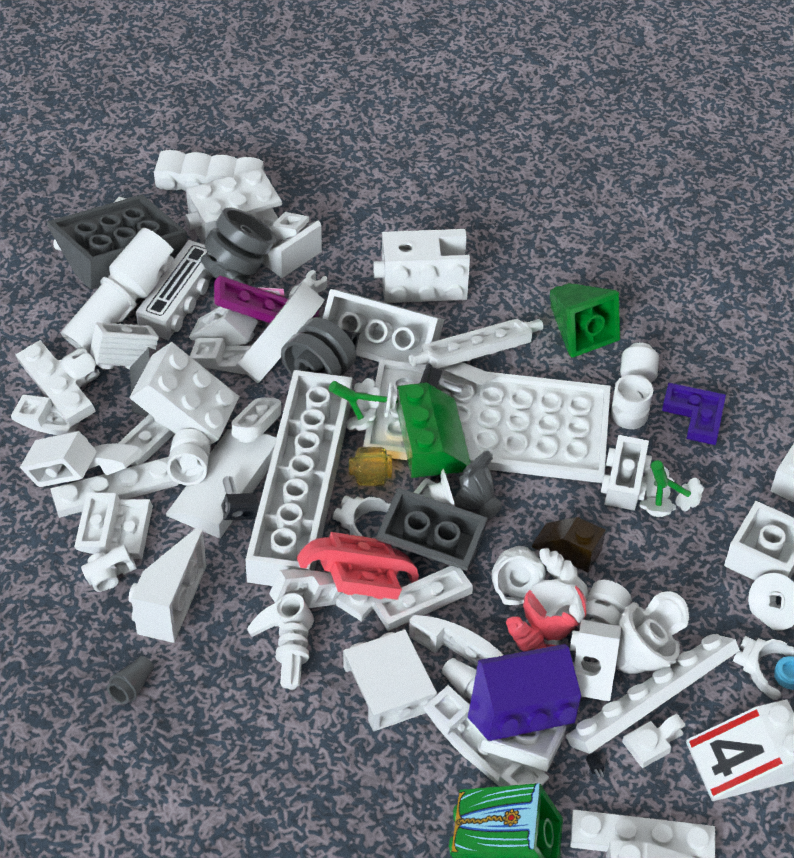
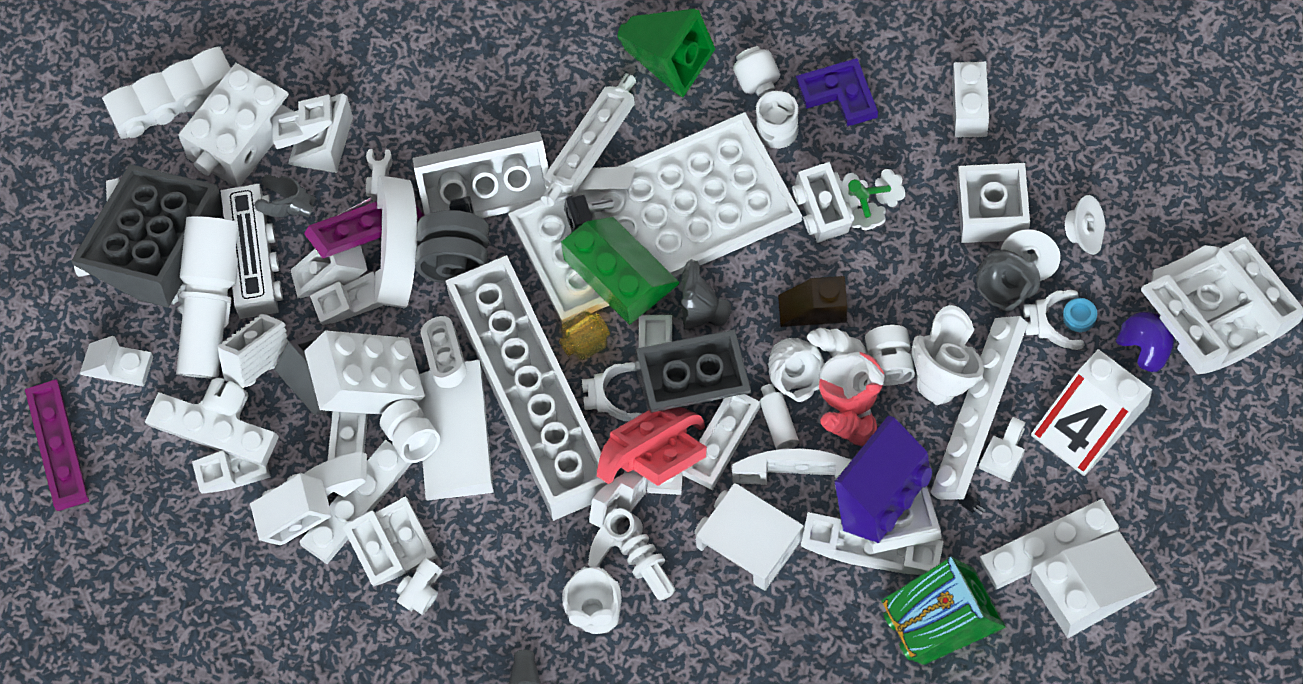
camera: 25 degrees left, 15 degrees up
(32, 310) = (116, 363): none -> white slope
(168, 588) = (500, 589): white slope -> none
(226, 651) = (592, 600): none -> white hair
(236, 505) = (494, 455): black piece -> none
(240, 241) = (281, 164): dark grey wheel -> none
(364, 401) = (529, 265): white plant -> none
(423, 266) = (479, 82): white torso -> none
(441, 491) = (673, 327): white piece -> none
(461, 677) = (814, 495): white cone -> none
(480, 607) = (778, 418): none -> white cylinder
(602, 643) = (917, 407): white brick -> none
(742, 608) = (1005, 278): none -> dark grey hair

